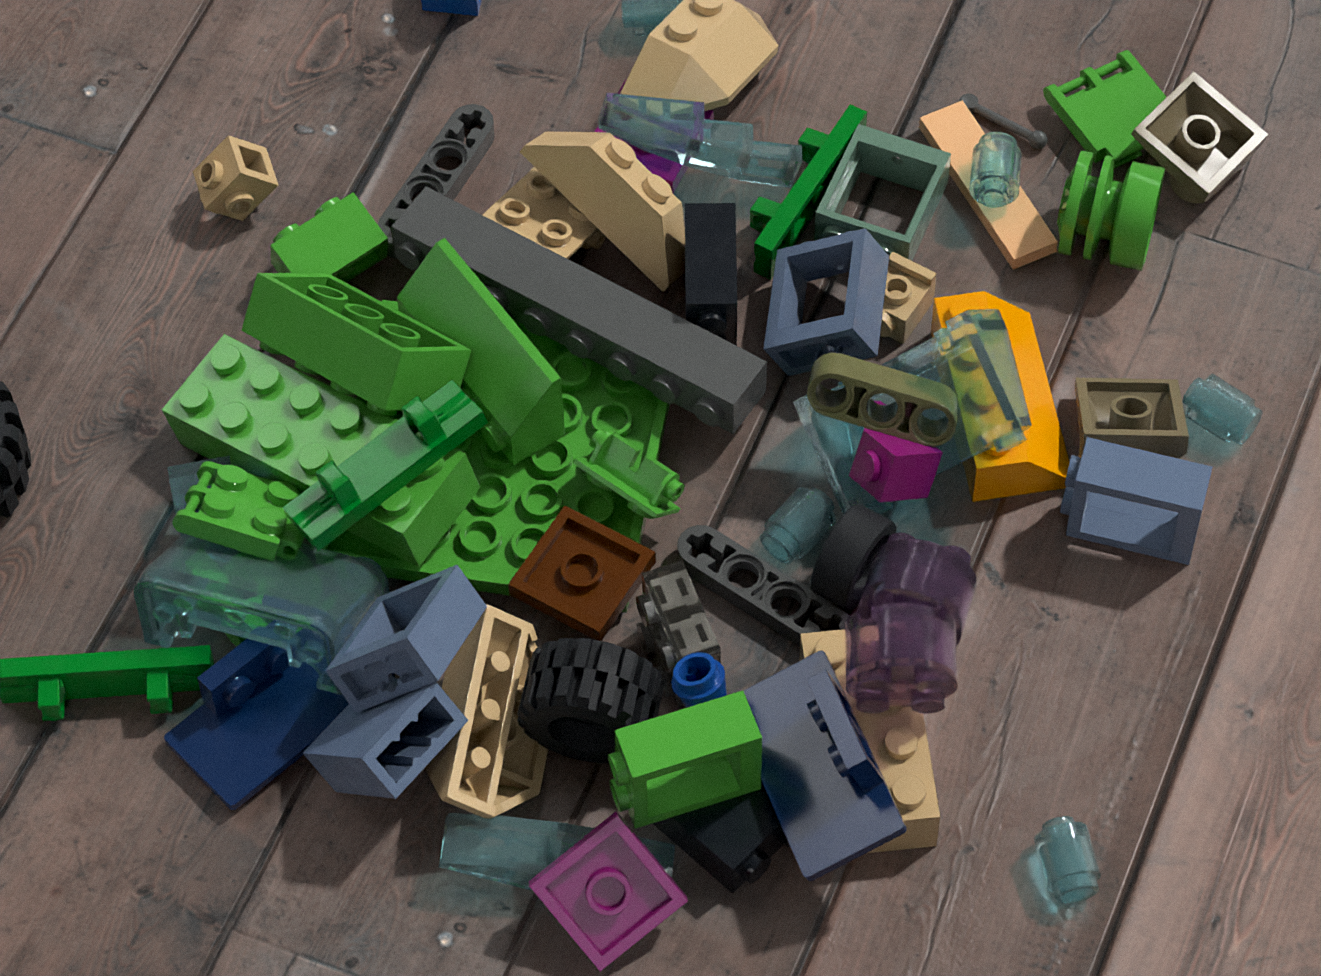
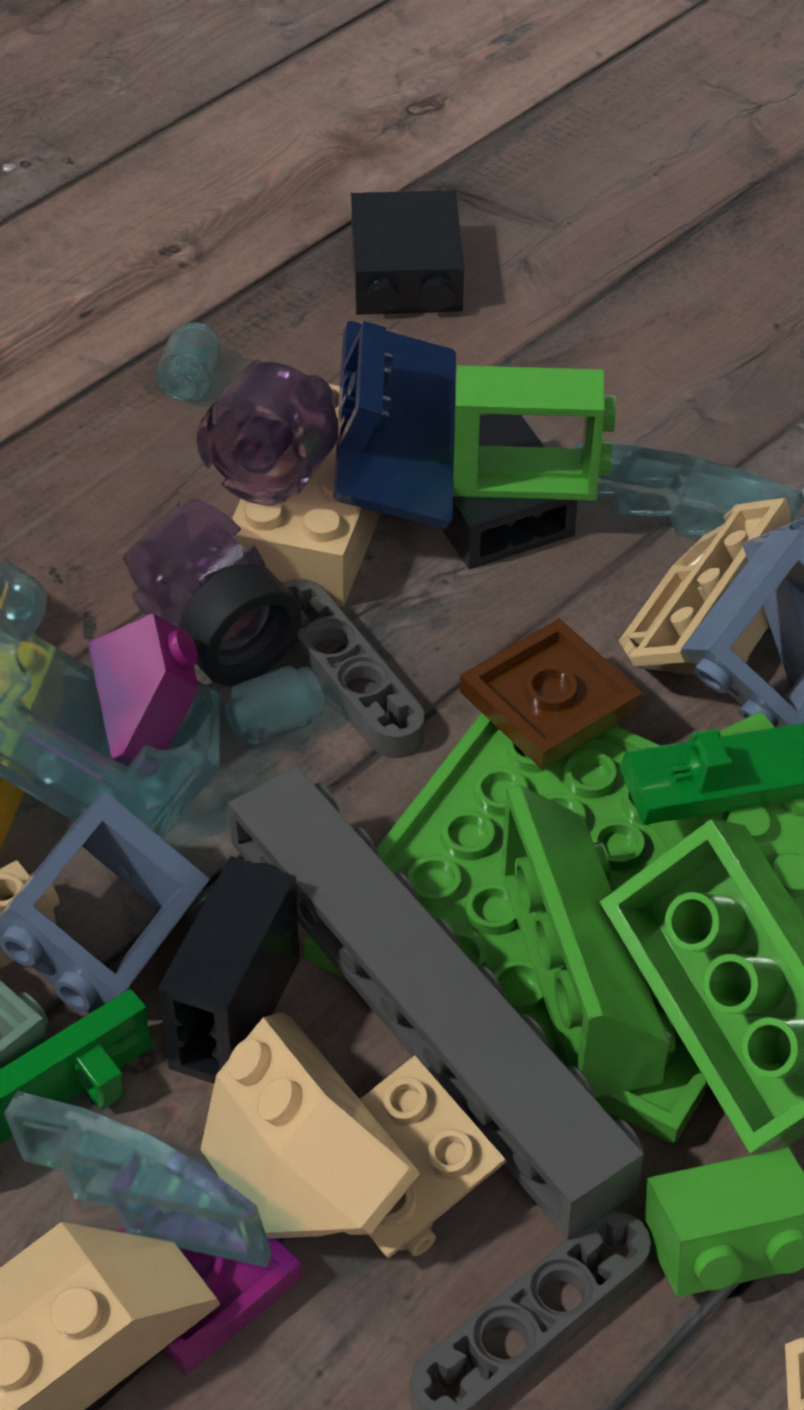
camera: 160 degrees left, 10 degrees down
(583, 693) = (597, 557): black tyre -> none
(608, 891) = (660, 427): magenta plate -> none
(613, 470) = (453, 764): bright green hinge -> none
(673, 621) = (472, 594): clear smoke piece -> none
(698, 679) = (481, 495): blue cone -> none
(898, 419) = (124, 694): olive beam -> none

